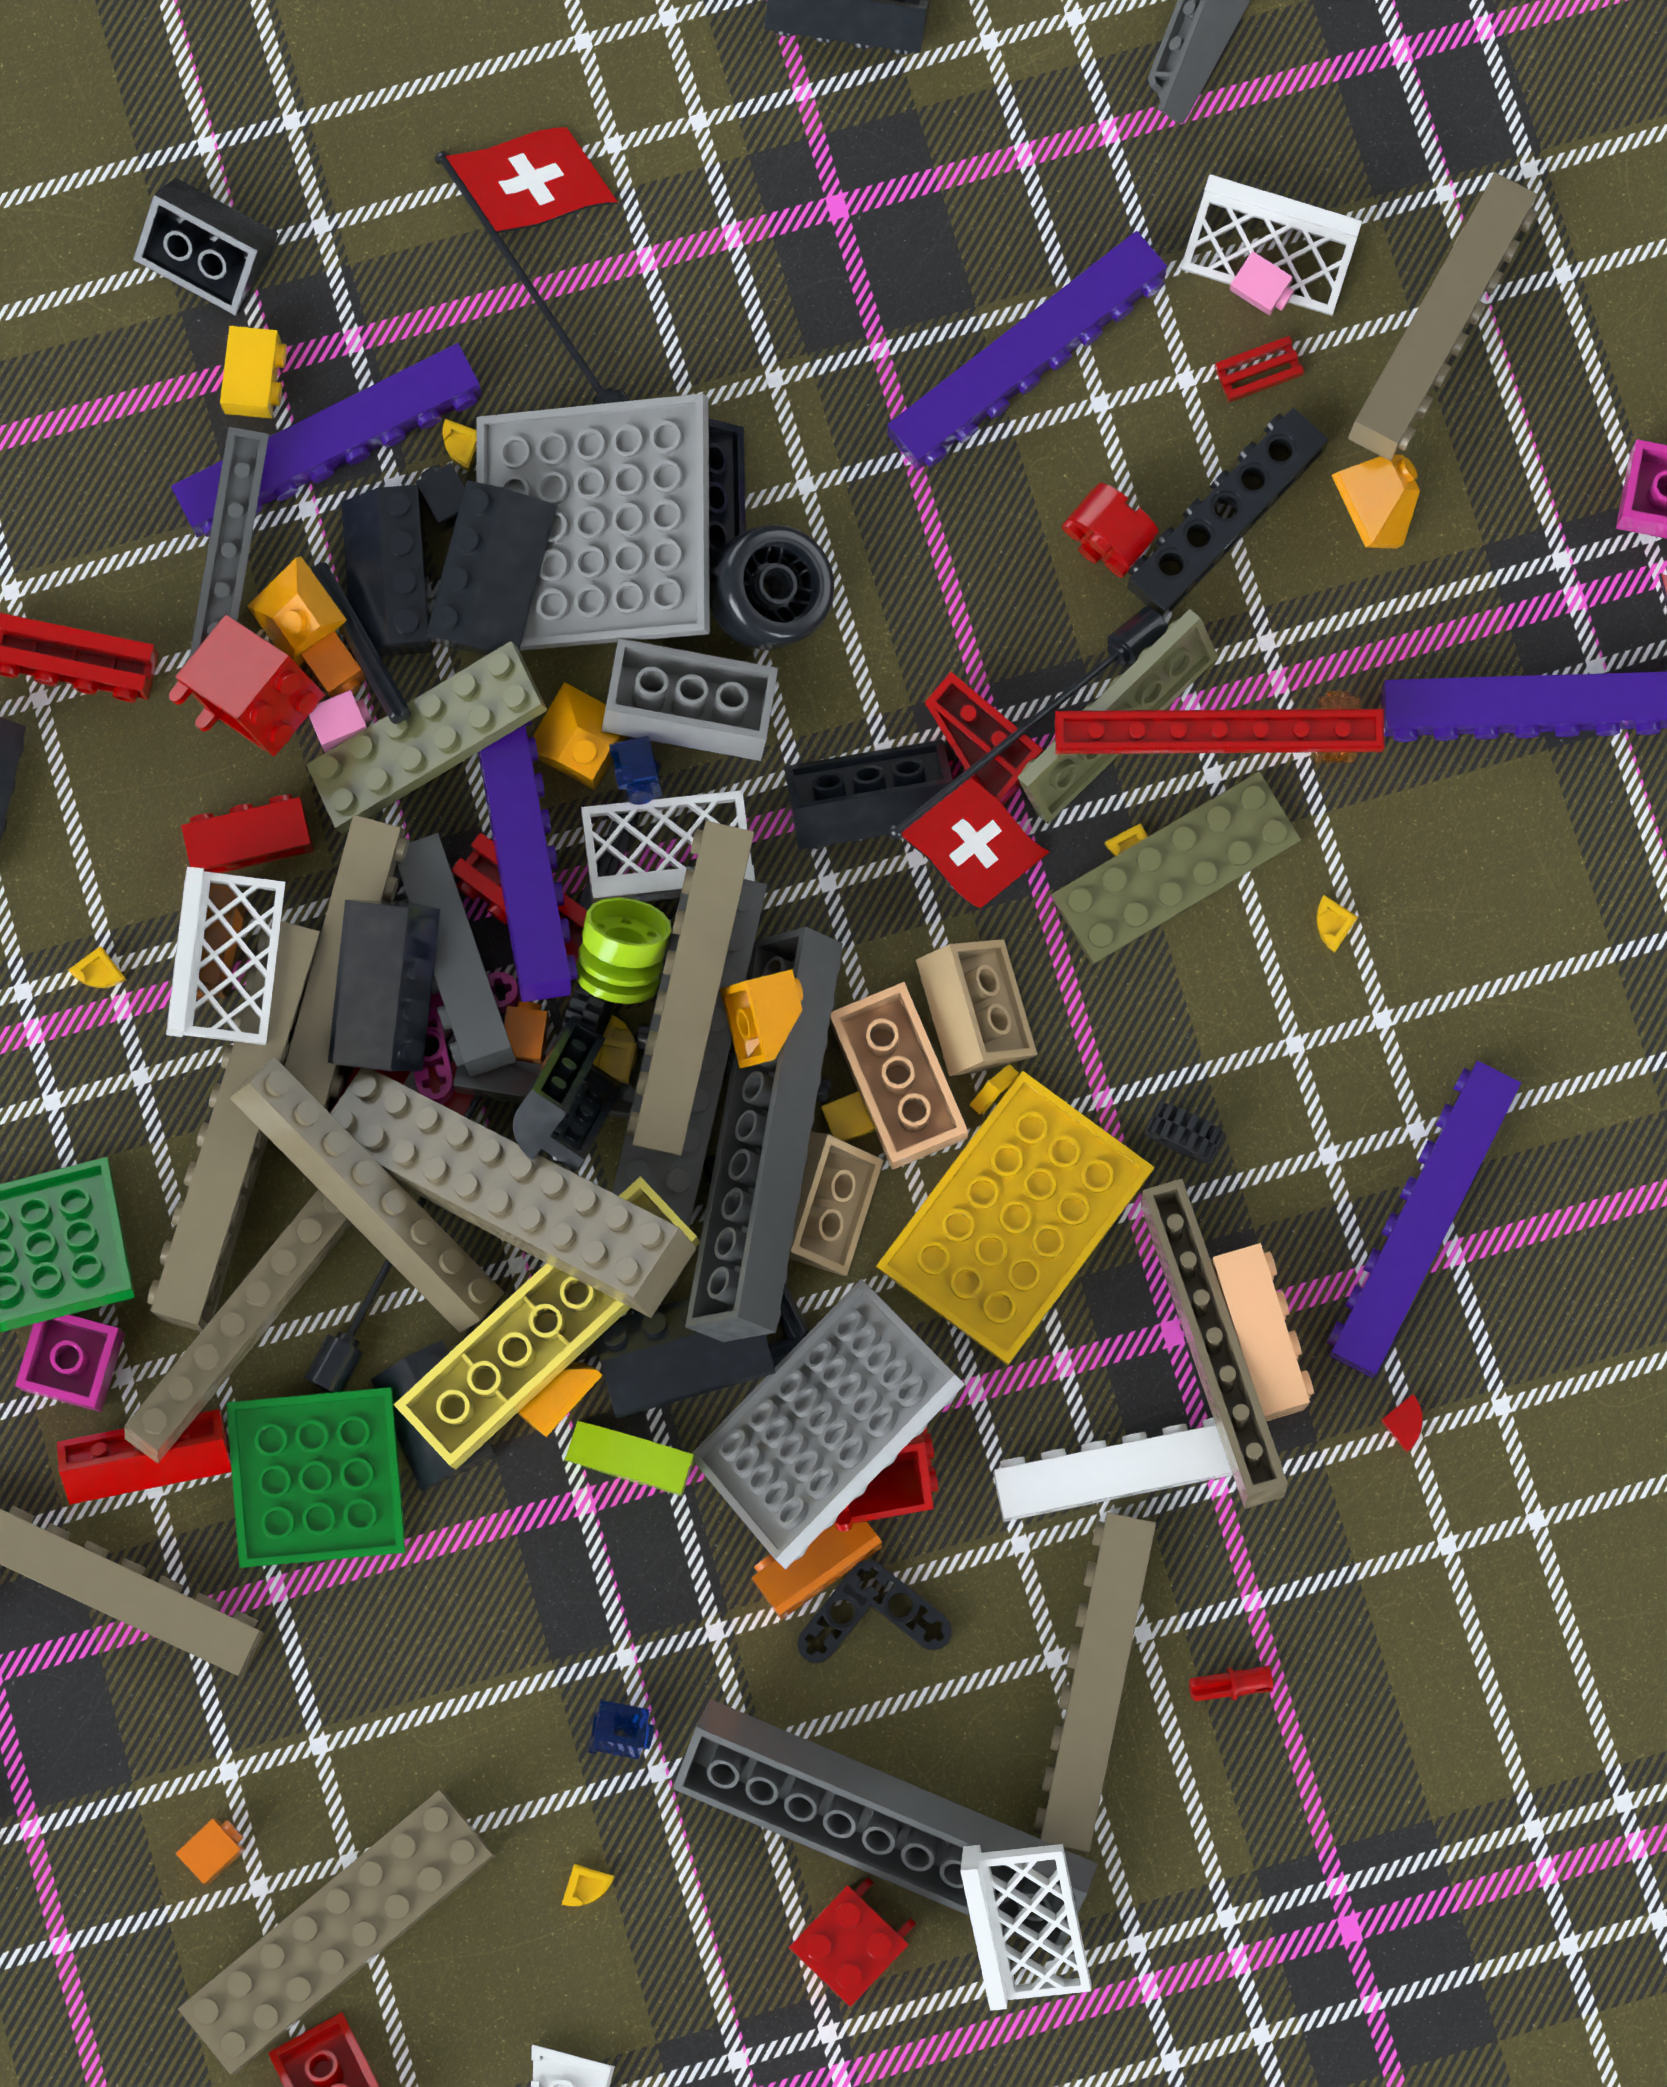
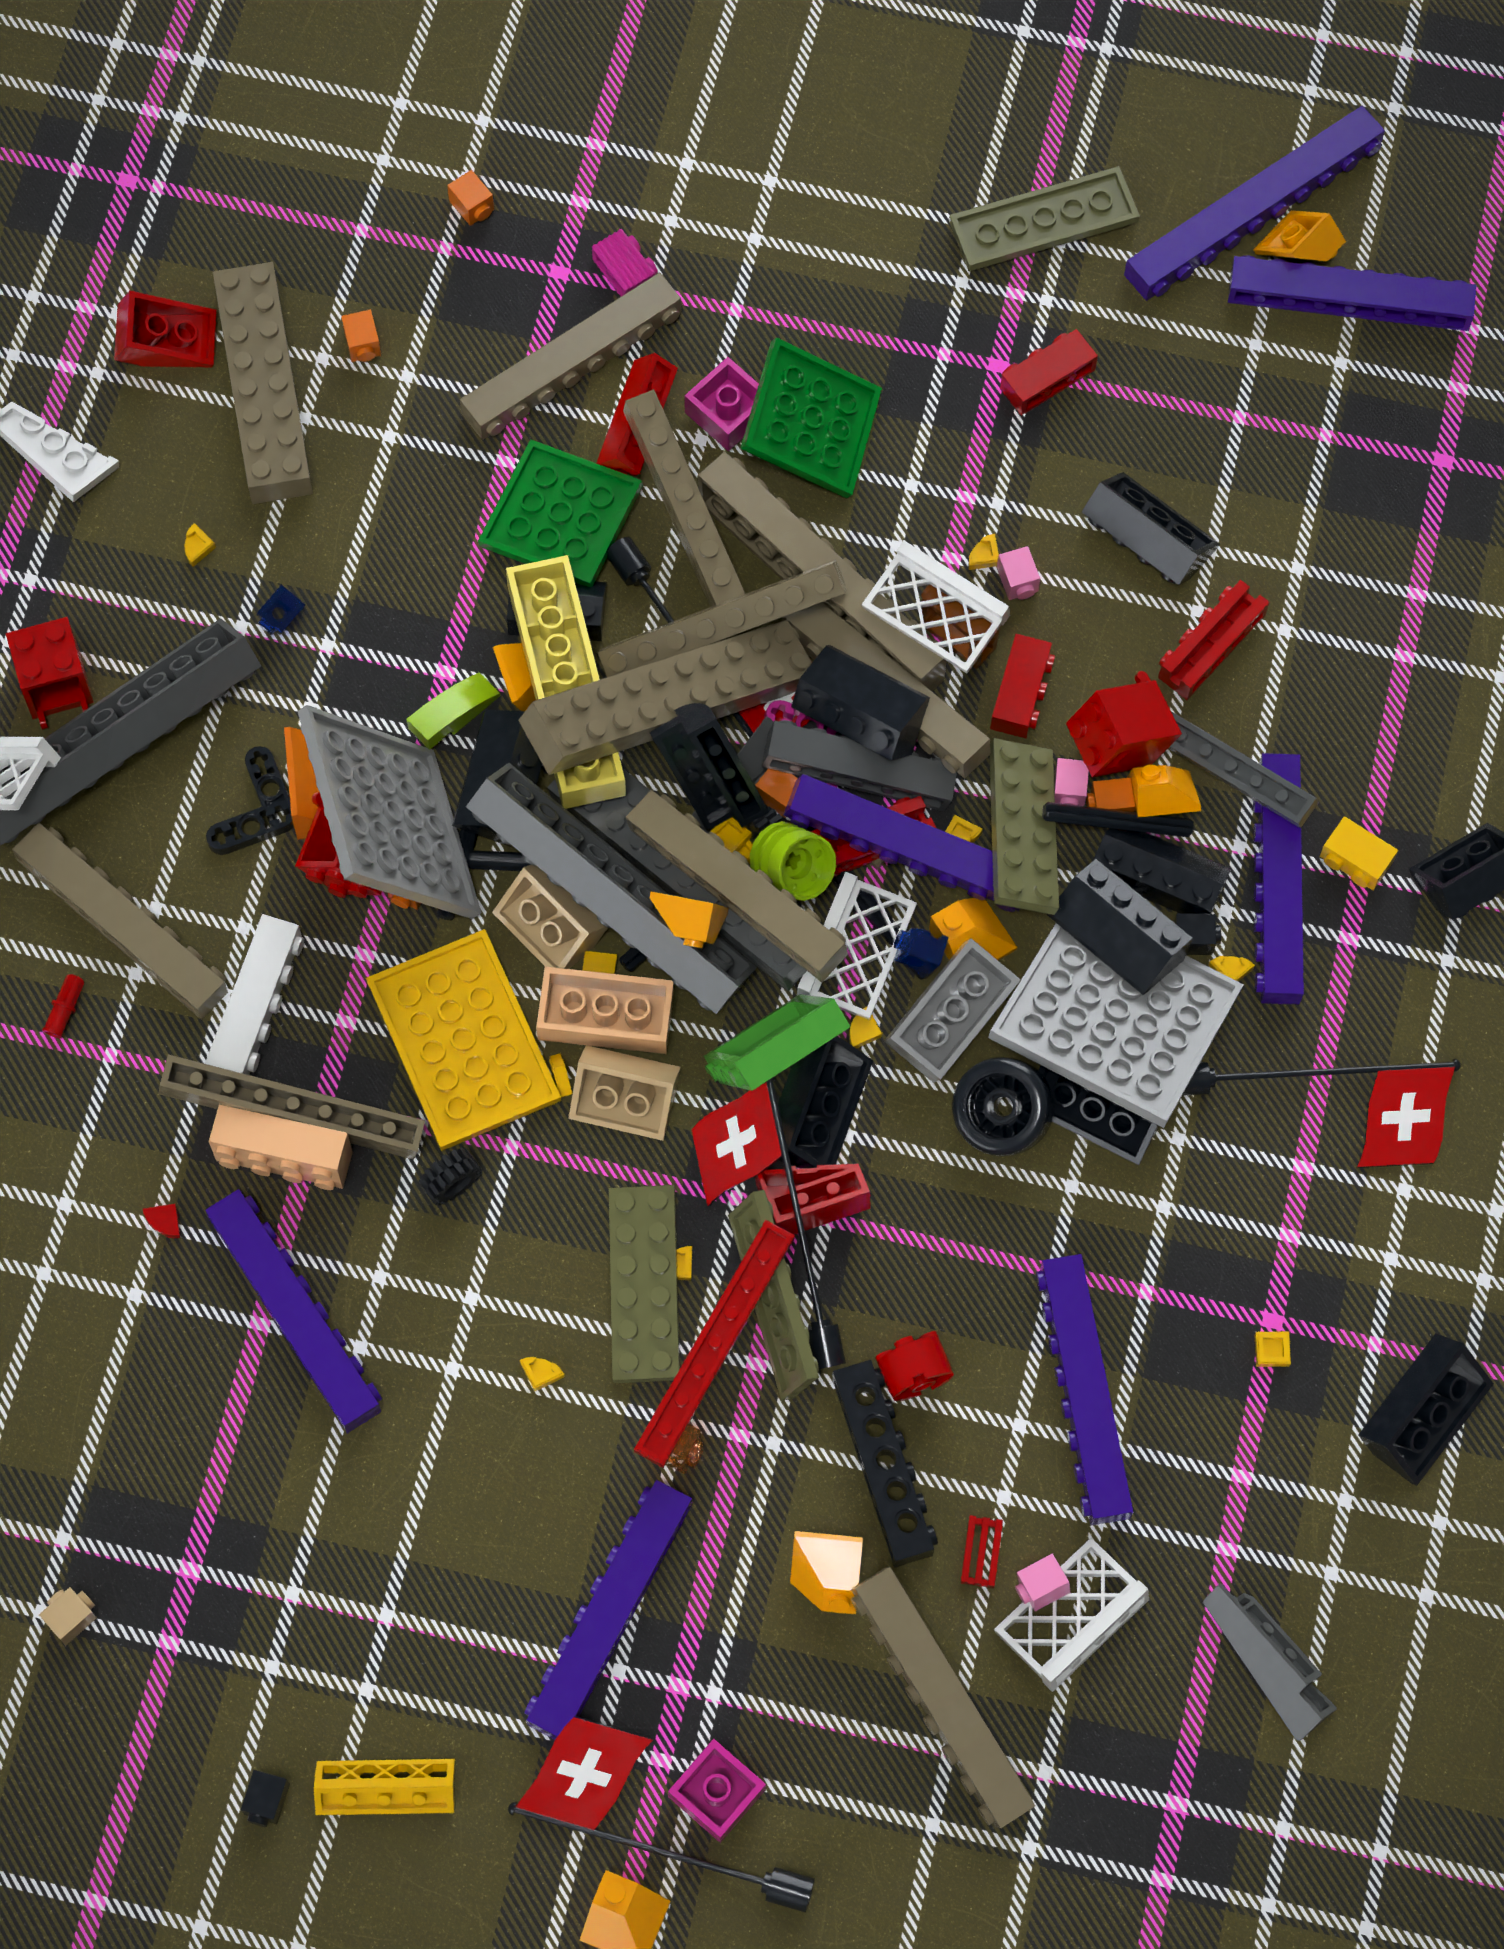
camera: 115 degrees right, 10 degrees down
(107, 913) = (1018, 573): none -> bright pink brick
(462, 815) = (964, 829): none -> yellow tile
(757, 794) = (863, 1031): none -> yellow tile
(862, 816) = (776, 1042): none -> bright green window
(870, 189) = (1272, 1349): none -> yellow tile

